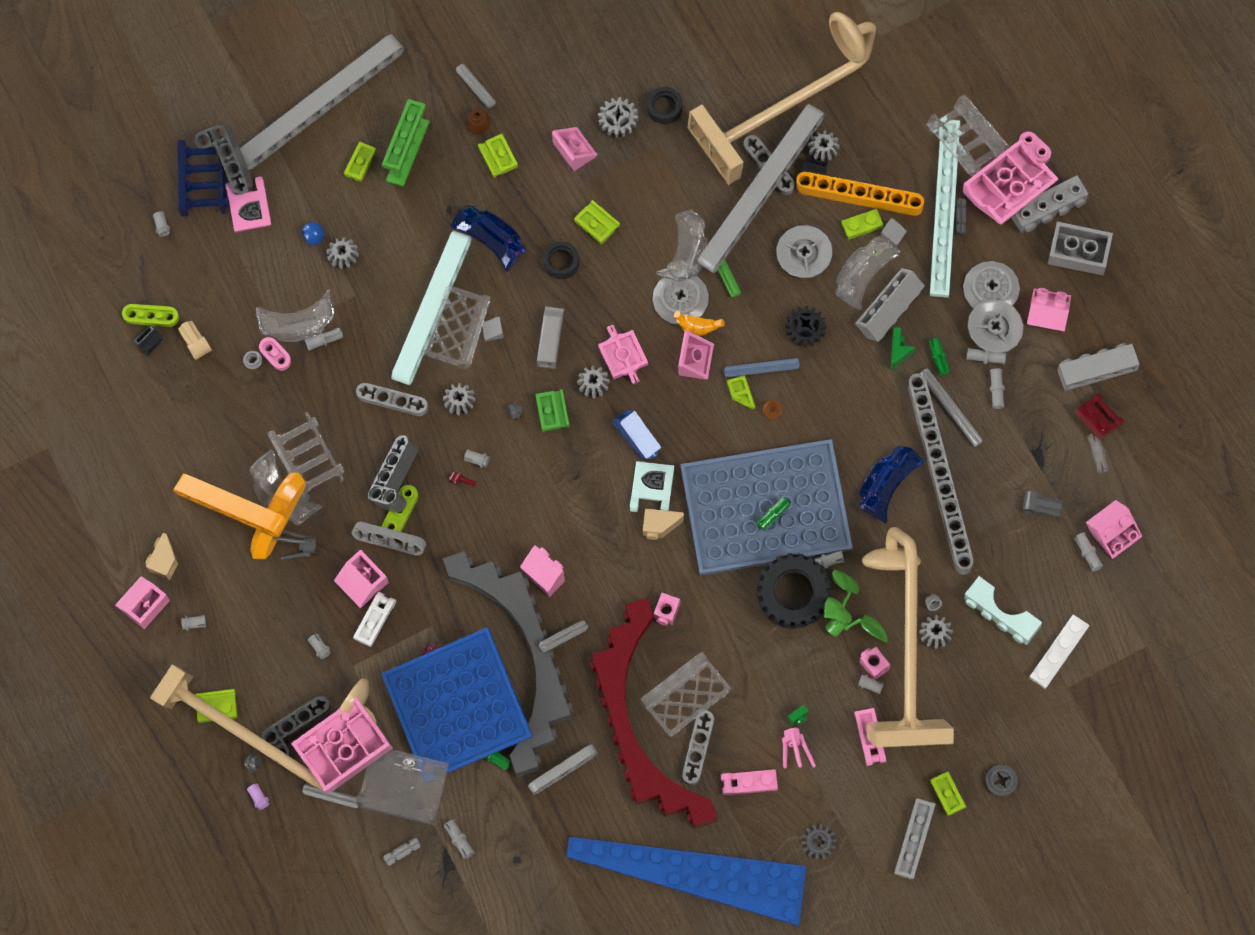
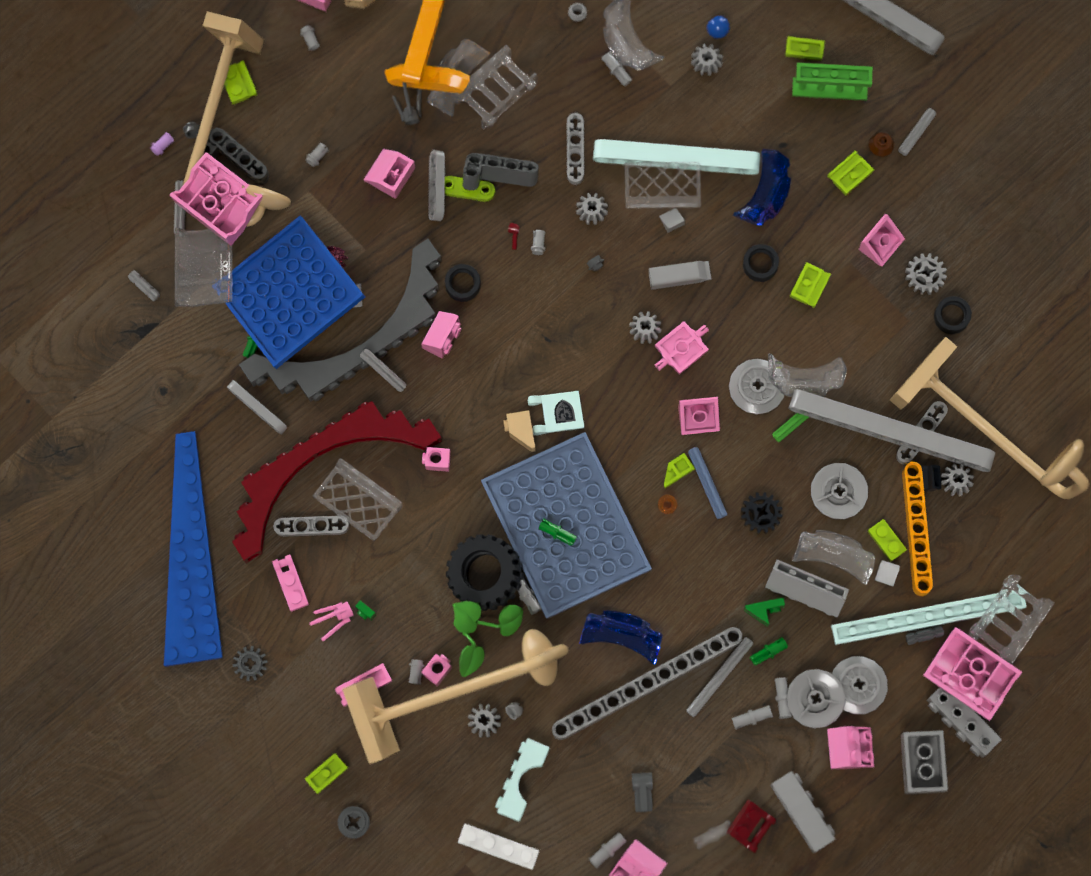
camera: 70 degrees right, 5 degrees up
(275, 354) = (587, 30): bright pink plate -> none
(374, 619) = (355, 196): white plate -> none
(459, 839) = (167, 332): light grey pin -> none
(499, 525) = (460, 269): none -> black tyre
(552, 410) = (606, 298): bright green plate -> none
(636, 434) = (603, 382): slope -> none
(697, 325) = (729, 408): light orange piece -> none
(914, 839) = (273, 753): light grey plate -> none
(1035, 146) = (1022, 690): bright pink plate -> none

